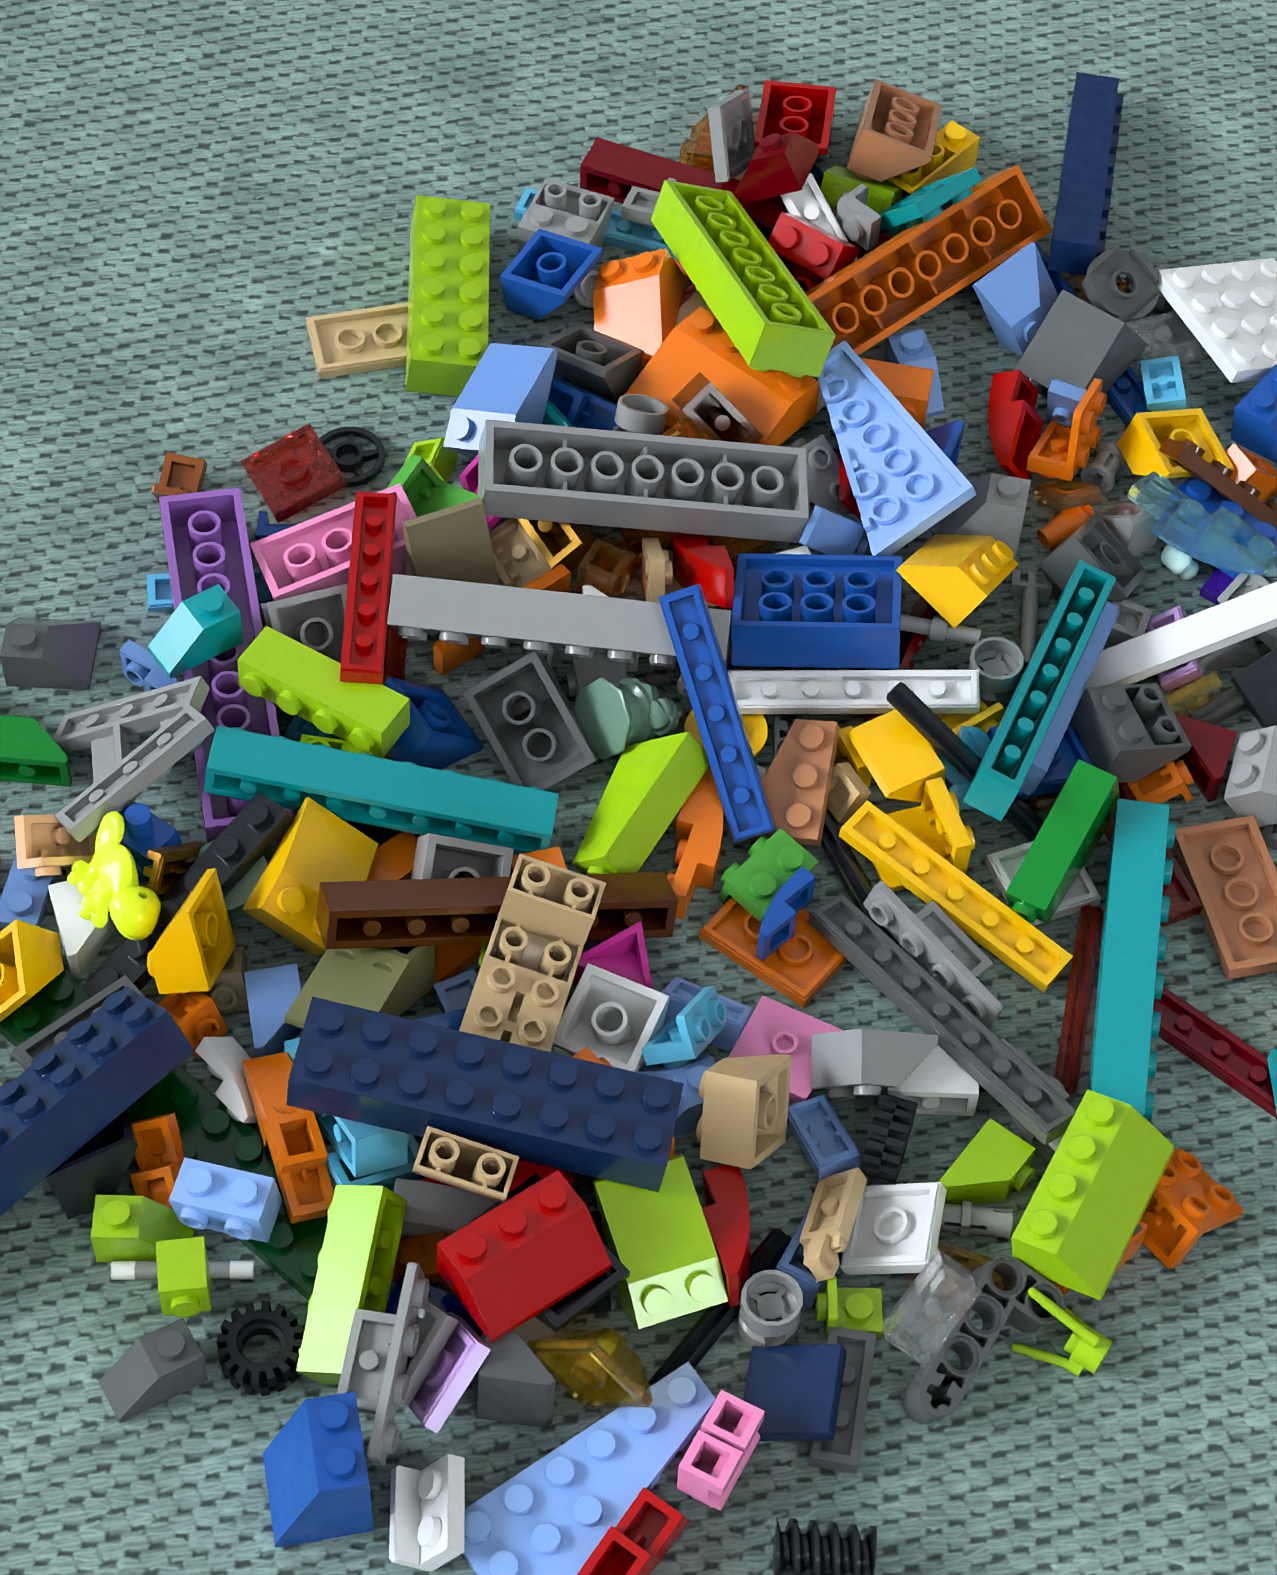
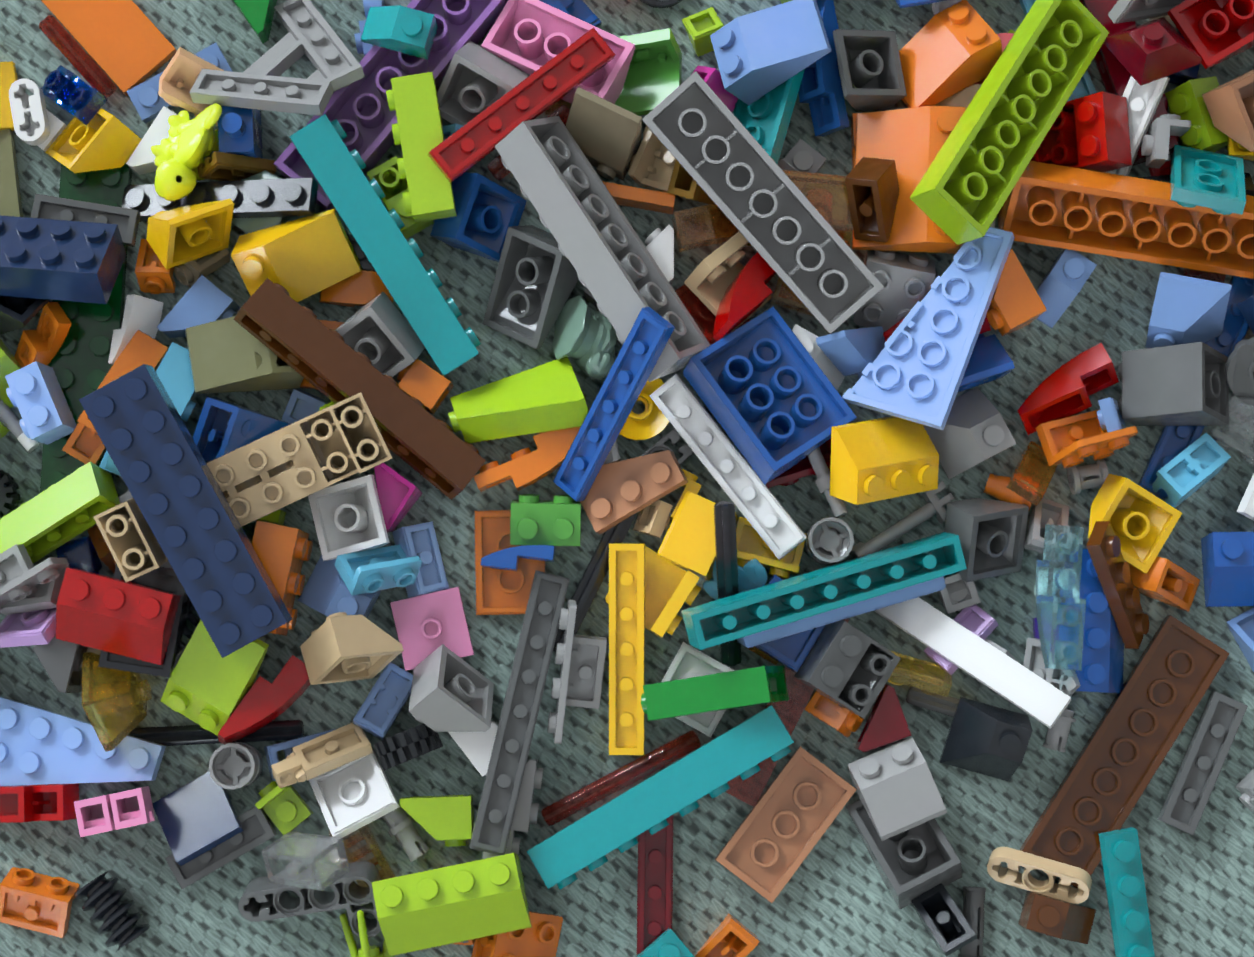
camera: 50 degrees right, 30 degrees up
(640, 414) = (833, 148): light grey wheel -> none

